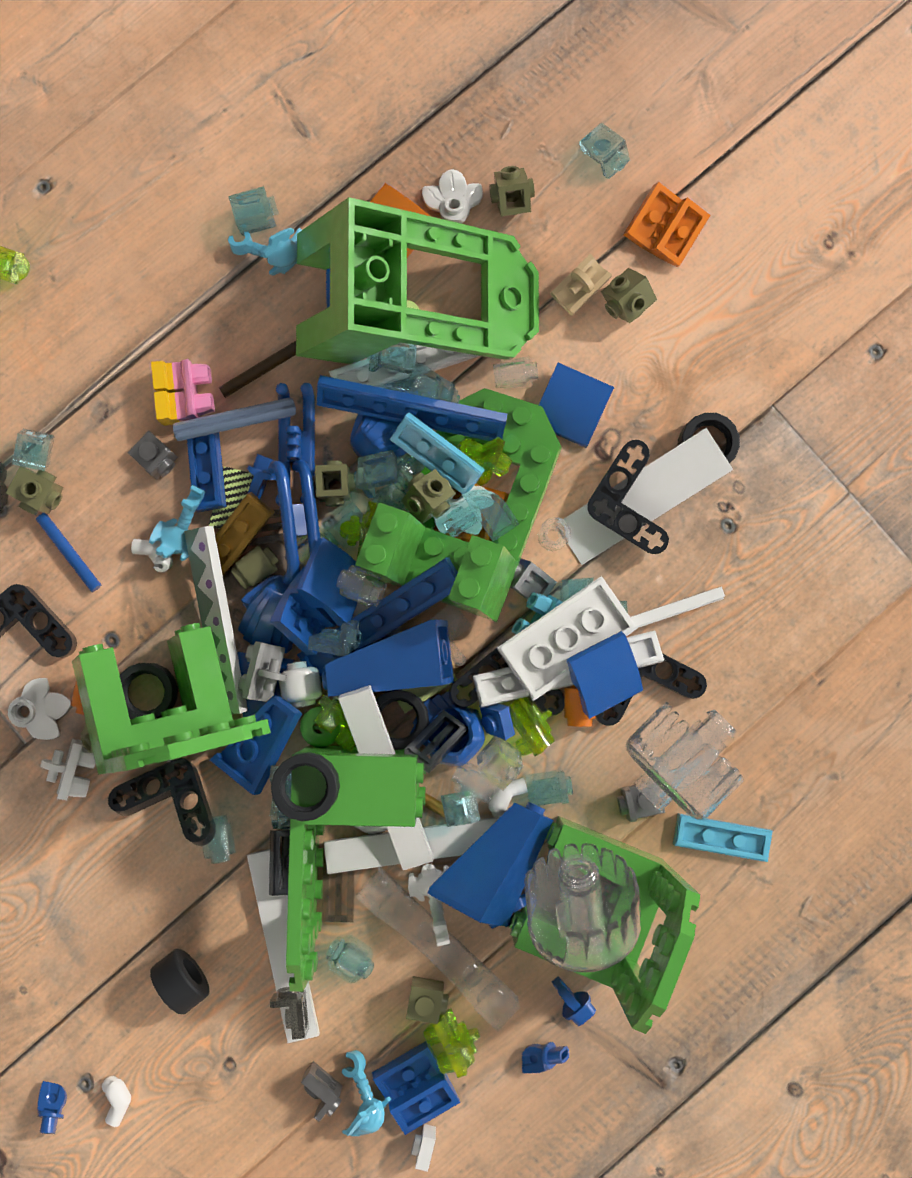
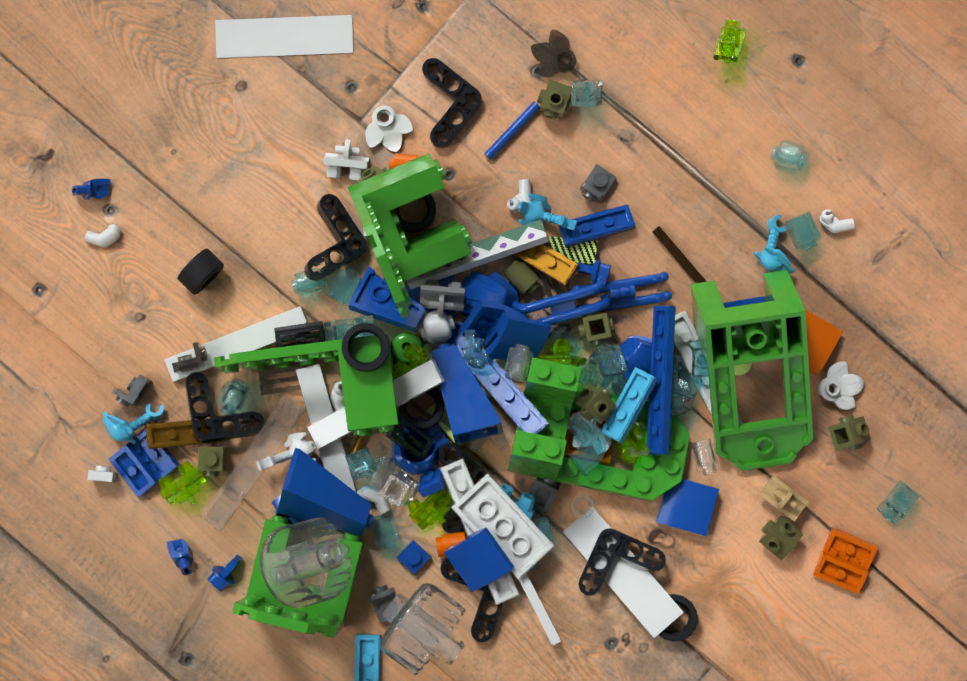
camera: 80 degrees right, 0 degrees up
(158, 212) = (789, 157): none -> clear light blue head
(177, 391) = (661, 198): hips -> none
(228, 796) = (344, 285): none -> clear light blue brick
(234, 419) = (634, 244): sand blue axle -> none
(247, 178) = (835, 225): none -> white arm
(379, 988) = (215, 423): none -> black beam
(386, 1032) = (173, 434): none -> pearl gold tile
(587, 756) = (413, 556): none -> blue plate

